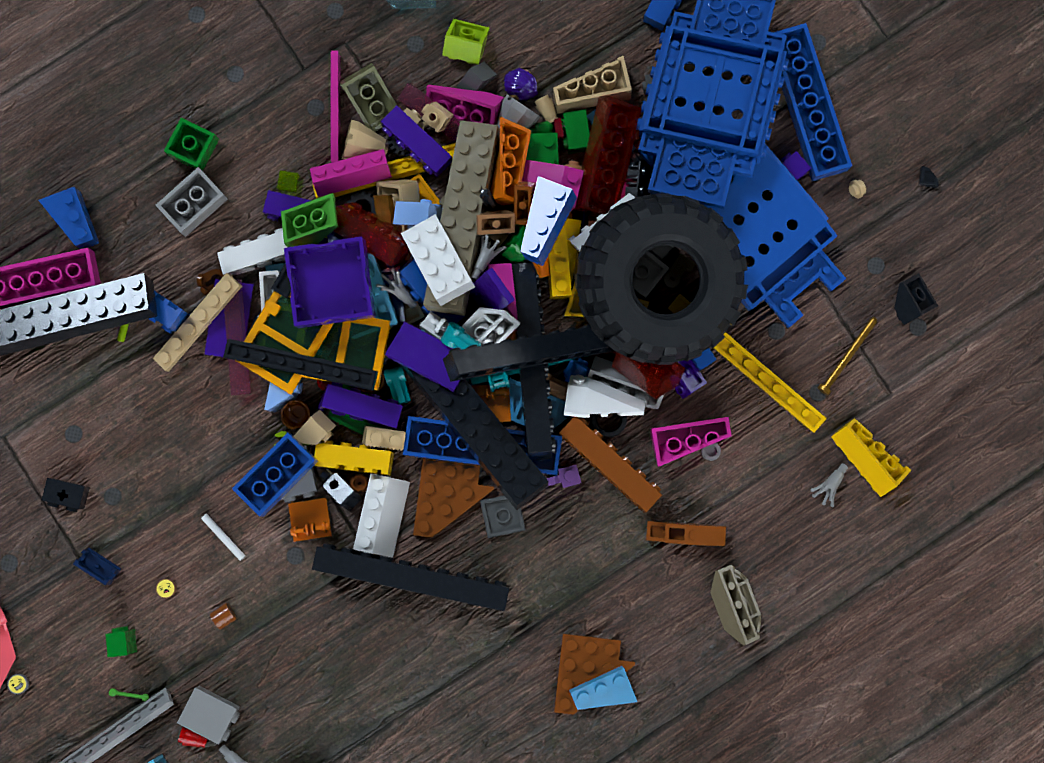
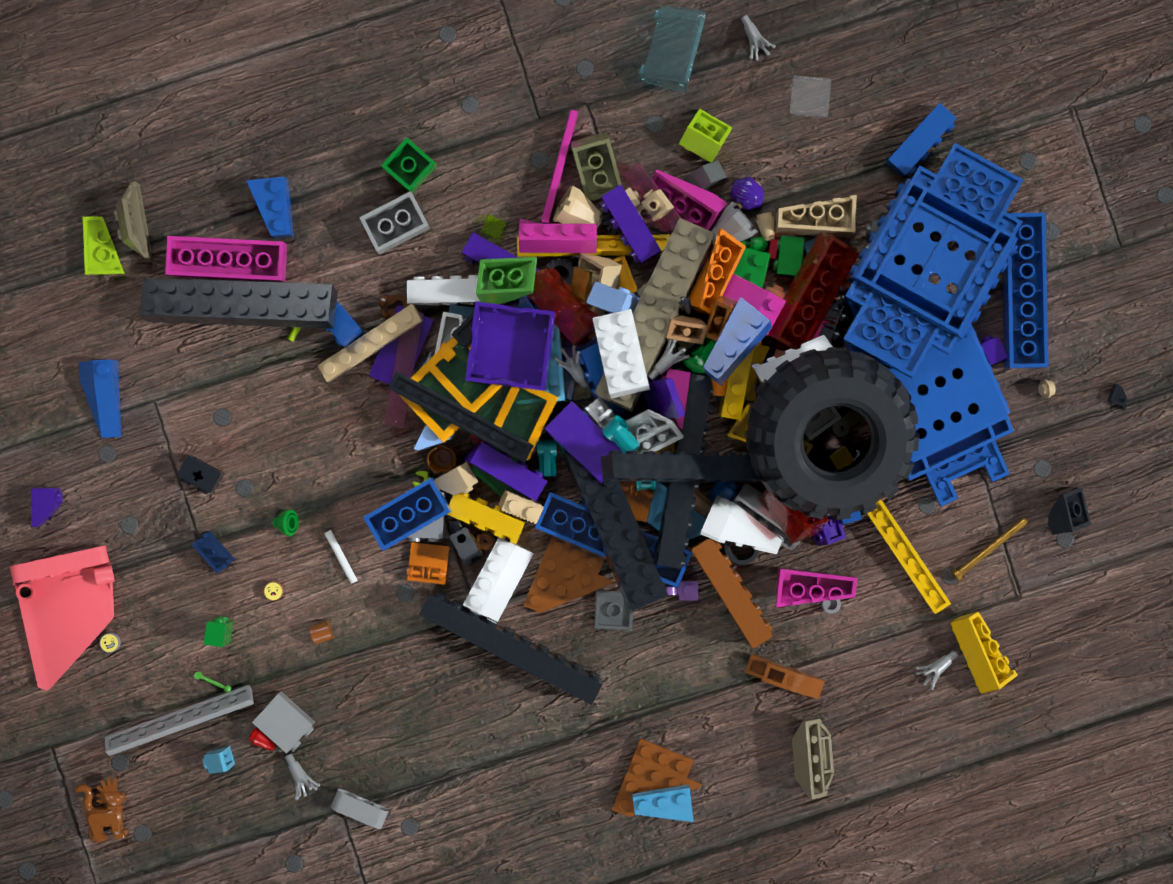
camera: 15 degrees right, 5 degrees up
(161, 517) = (286, 522): none -> green brick

